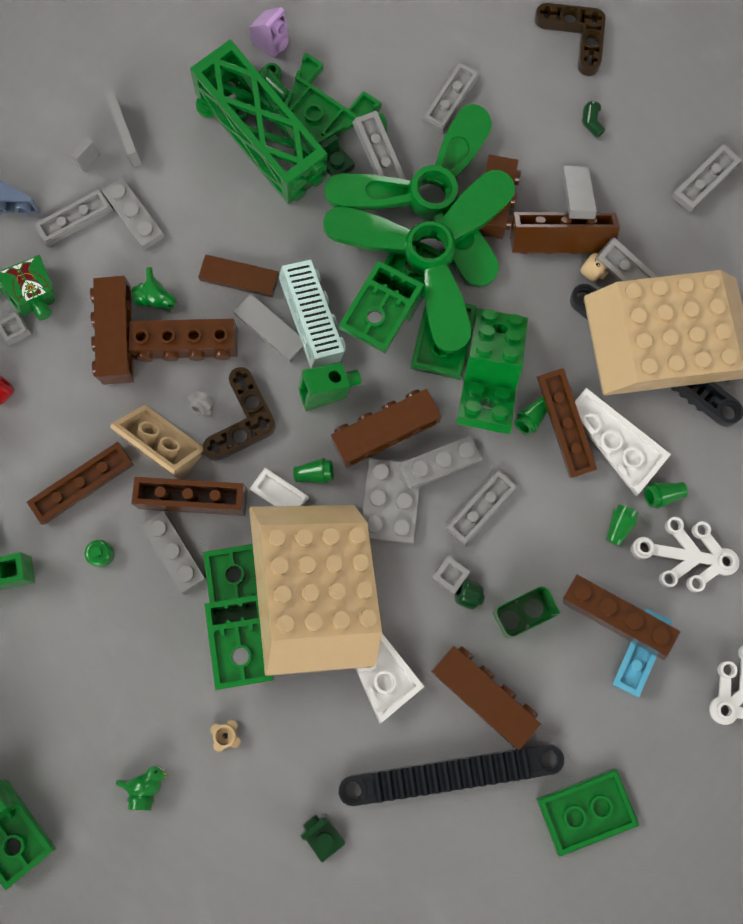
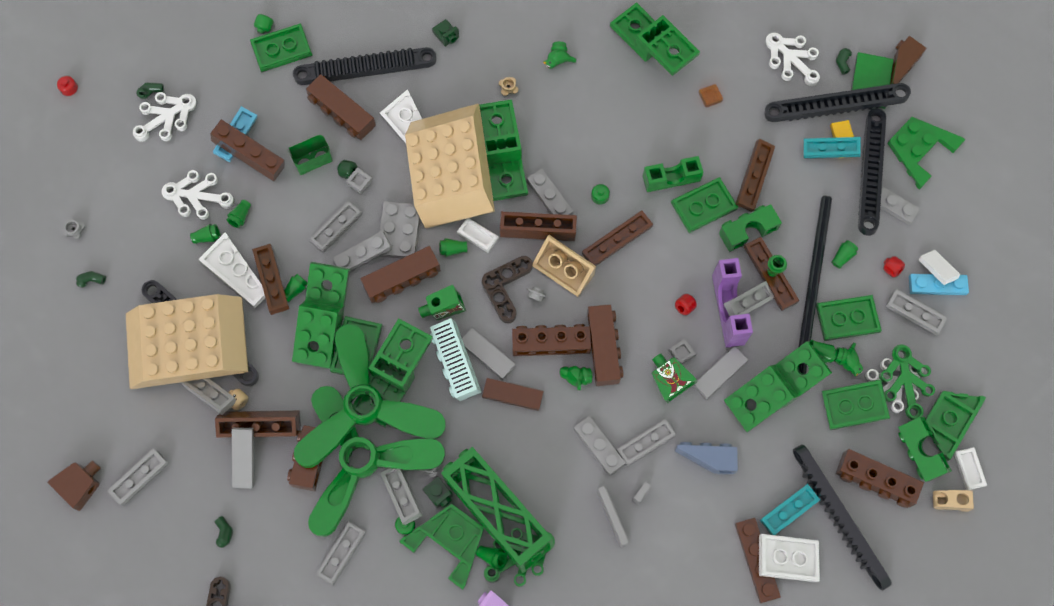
camera: 175 degrees right, 5 degrees down
(620, 856) = (263, 23): none -> green piece

